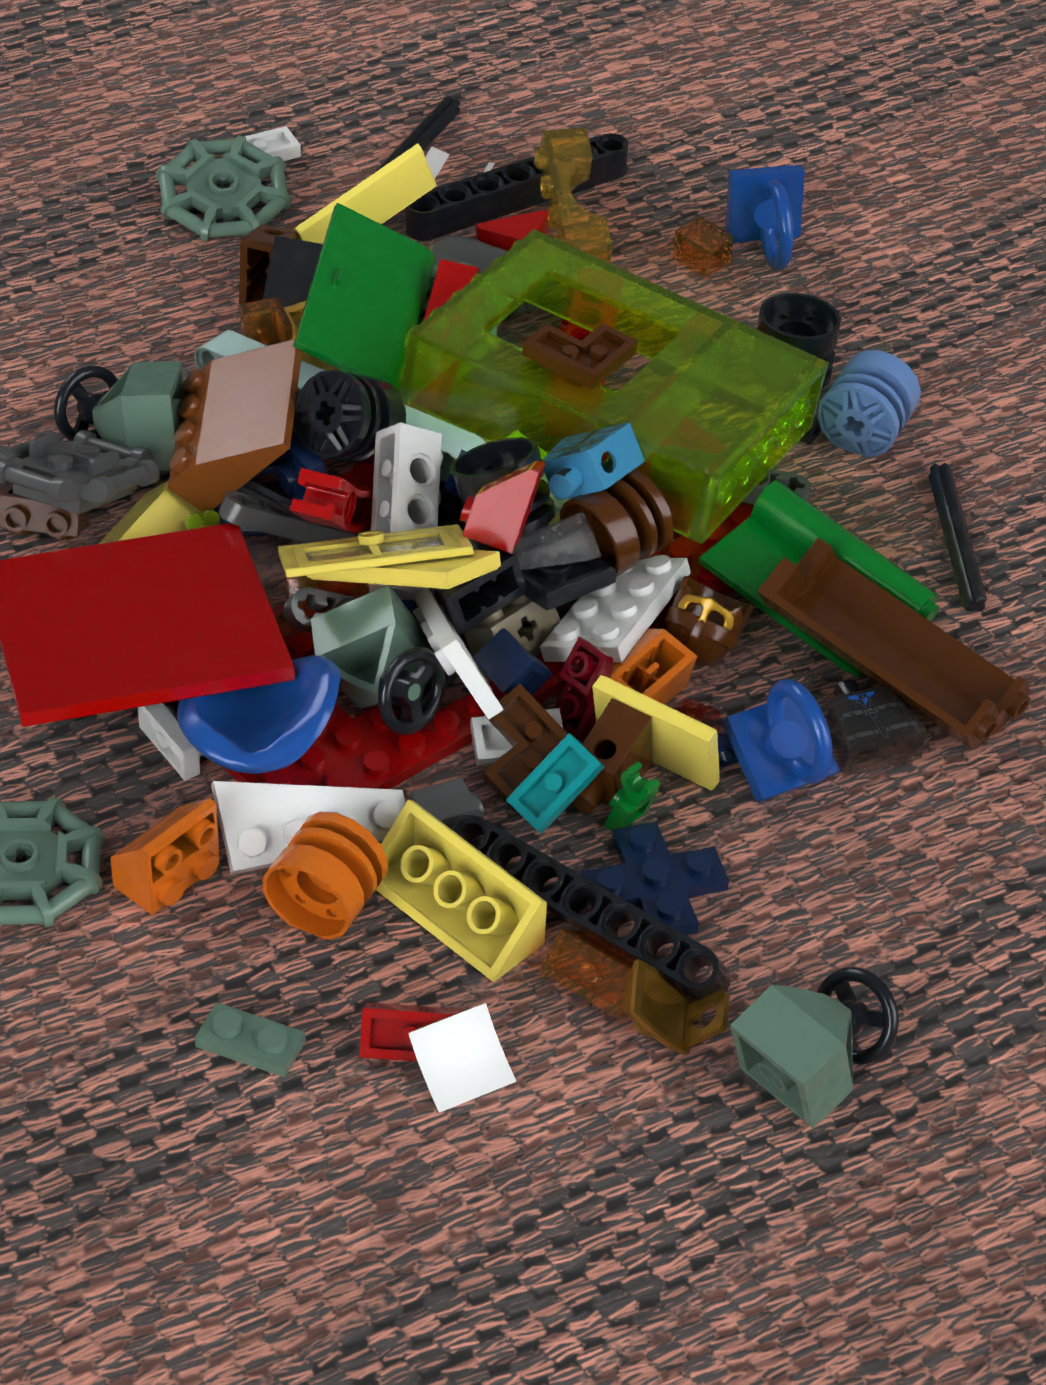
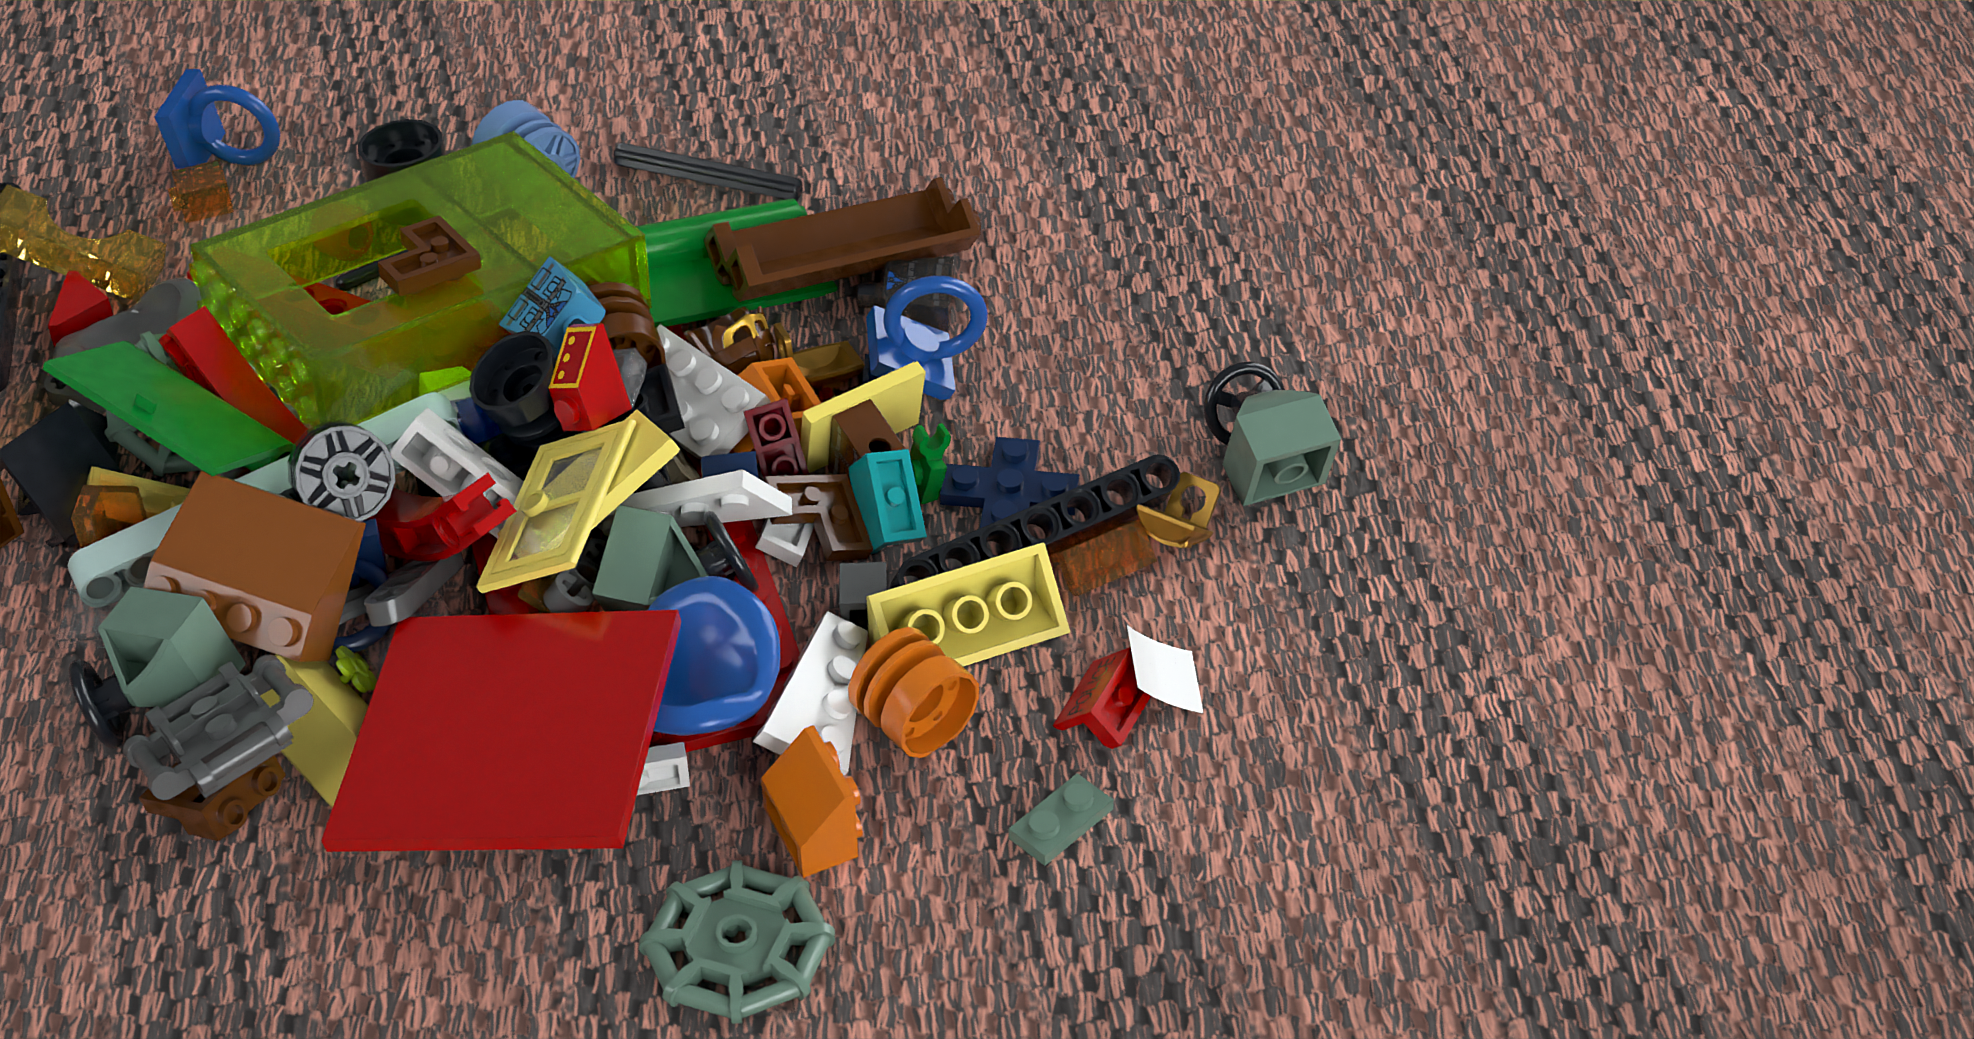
camera: 65 degrees left, 0 degrees up
(722, 684) = (821, 364): none -> pearl gold piece

